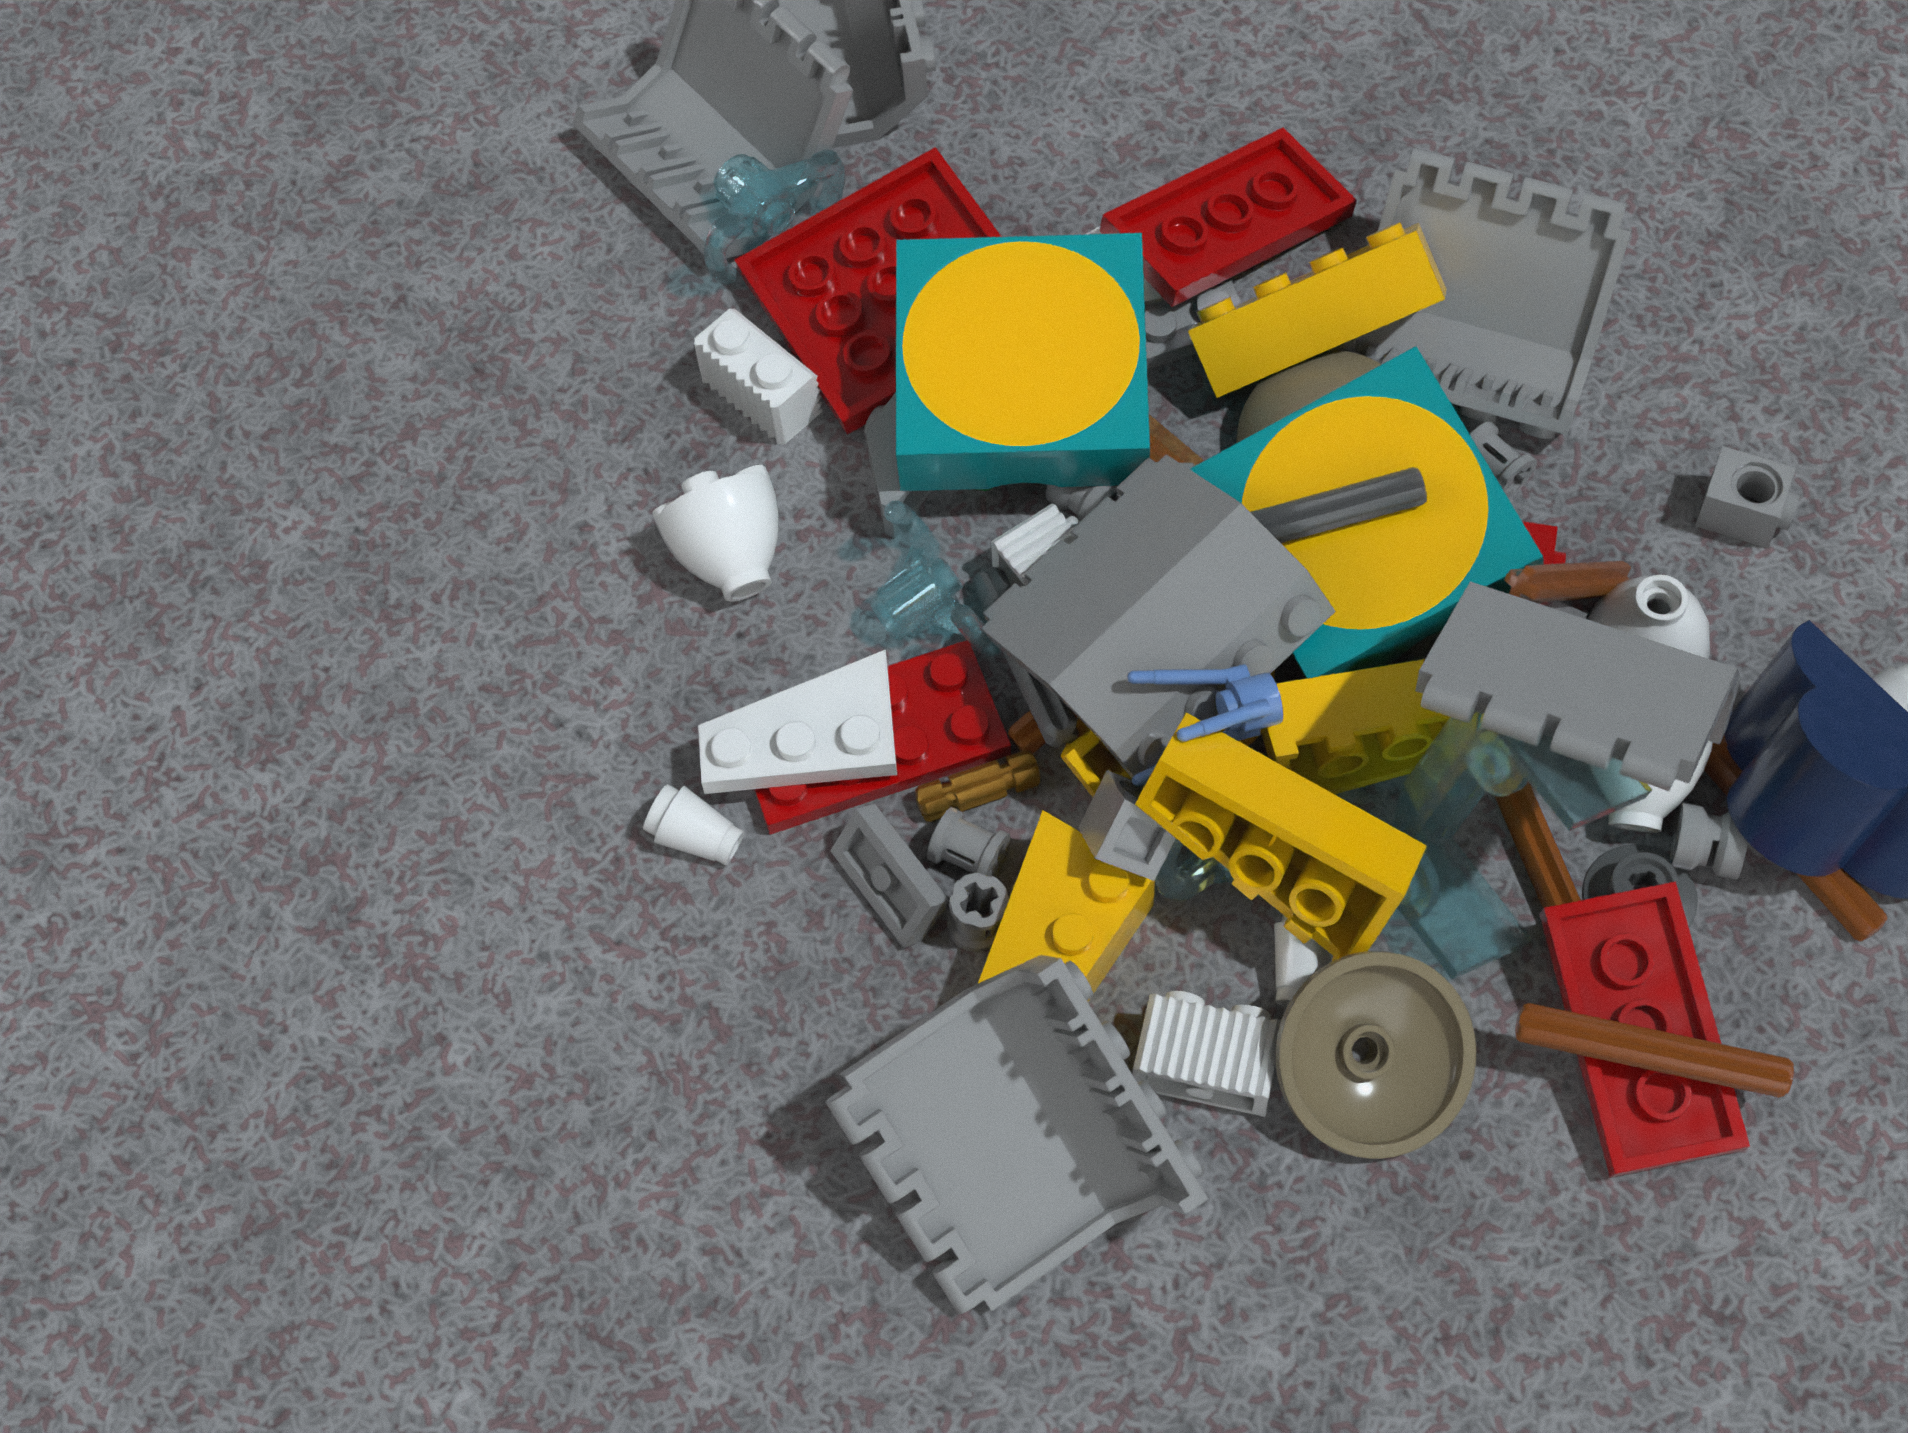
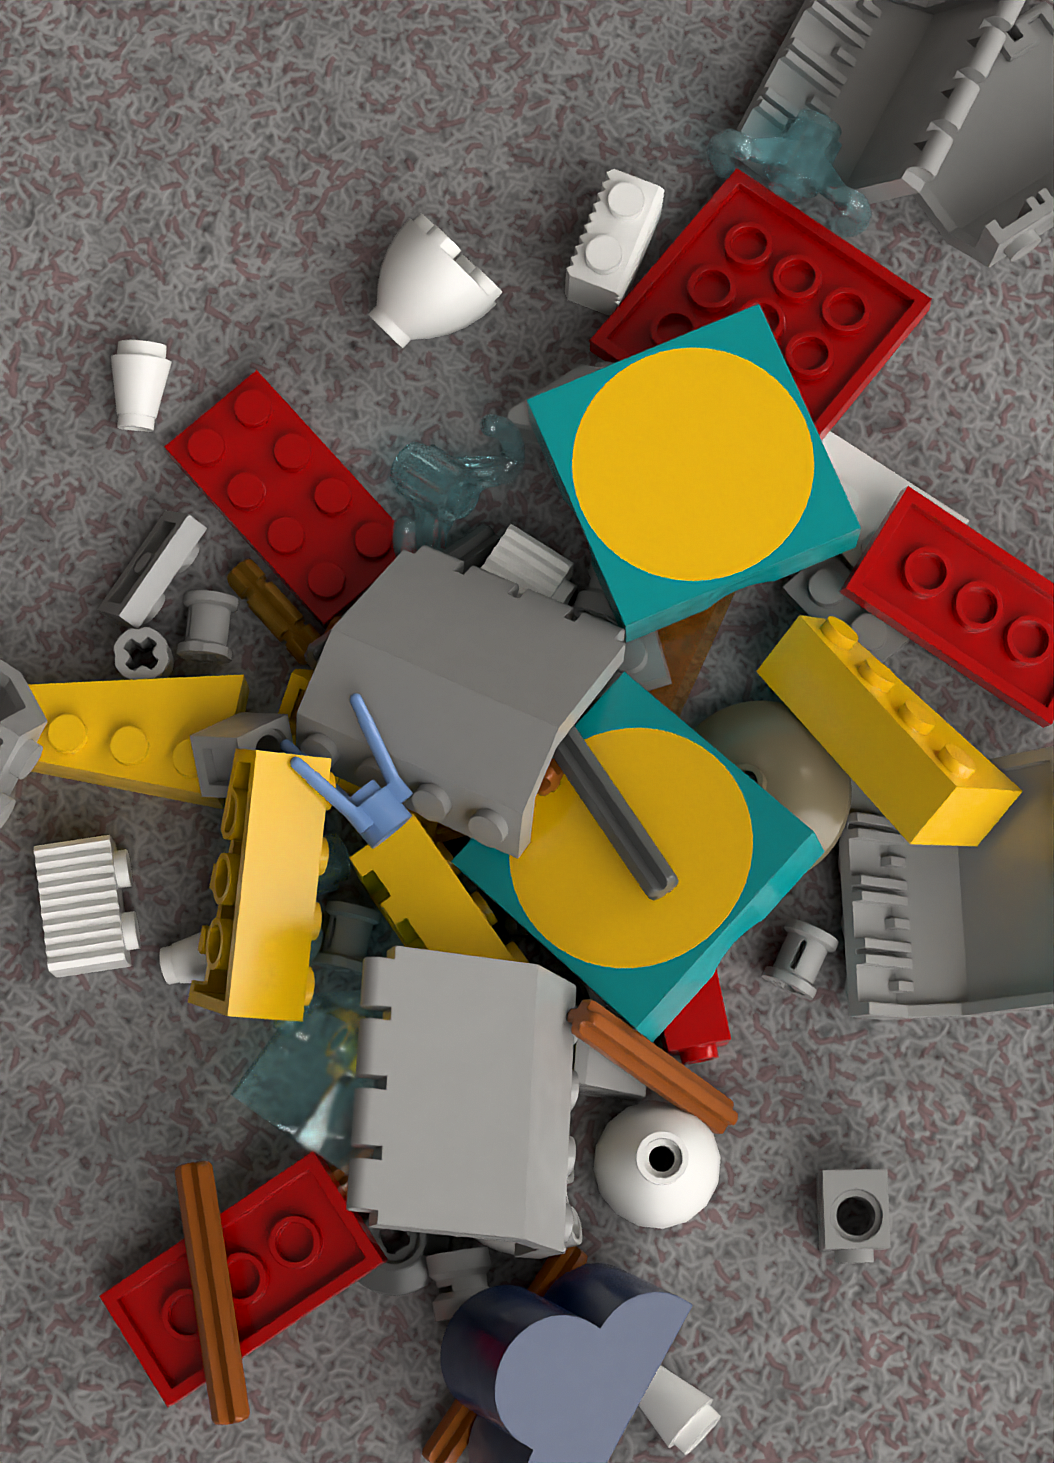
camera: 60 degrees right, 15 degrees up
(806, 734) = (255, 443): white wing -> none
(1415, 1063) = (100, 1067): dark tan dish -> none

